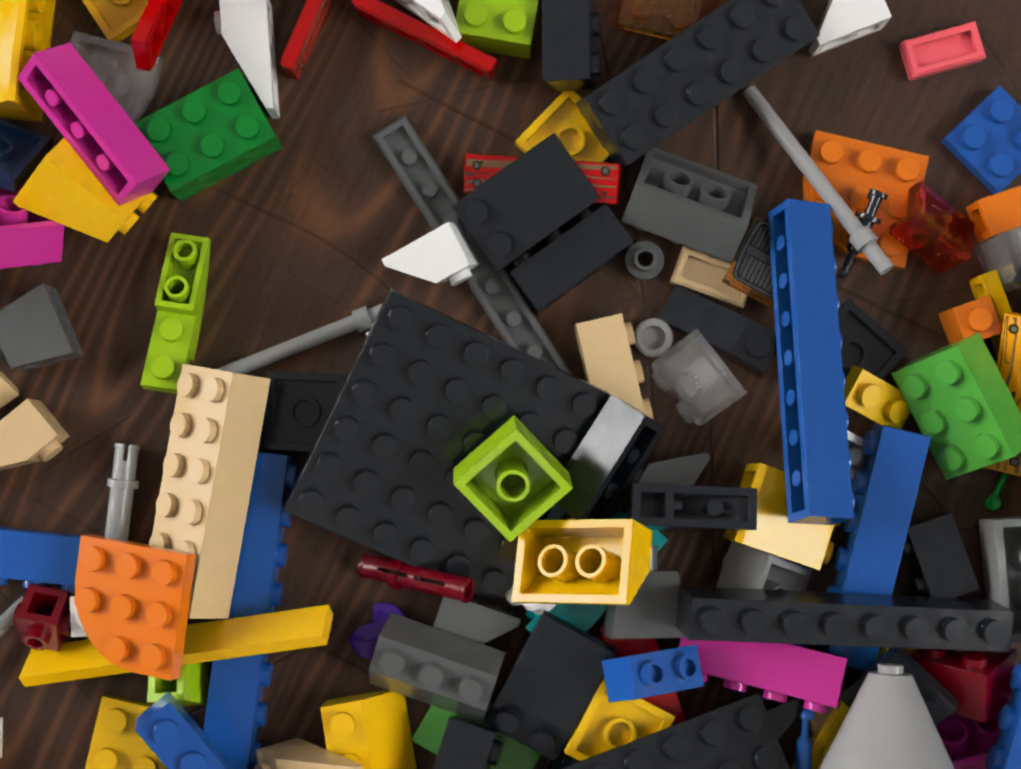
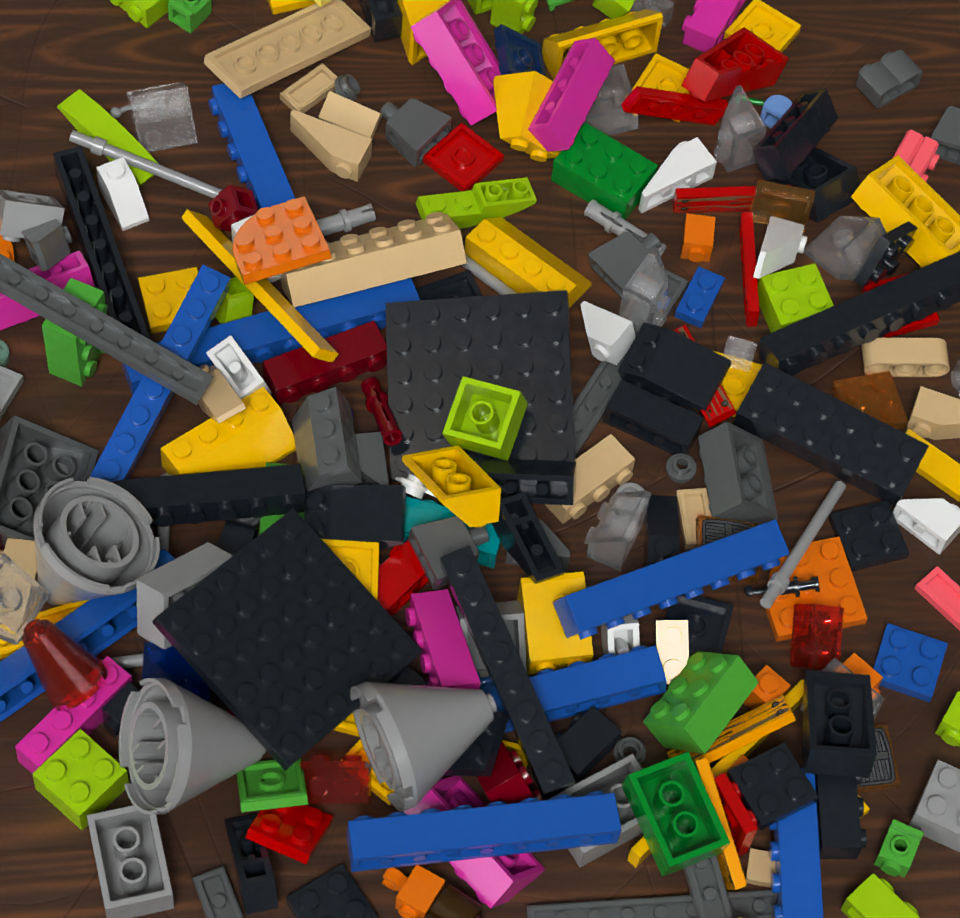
camera: 55 degrees right, 25 degrees down
(100, 292) = (463, 158): none -> red tile
(258, 174) = (613, 221): none -> light grey pin
(282, 724) = (236, 368): none -> white slope
(290, 296) = (521, 261): none -> yellow slope
(311, 582) = (300, 374): none -> dark red brick
(349, 177) = (620, 258): none -> dark grey torso
(354, 73) = (697, 237): none -> orange brick
(419, 180) = (646, 293): none -> clear slope
(430, 113) = (699, 297): none -> blue plate
(535, 111) = (740, 353): none -> clear bracket
(652, 673) = (401, 566): blue brick -> none
(826, 94) = (869, 535): none -> black plate
(974, 507) = (629, 744): none -> dark grey plate

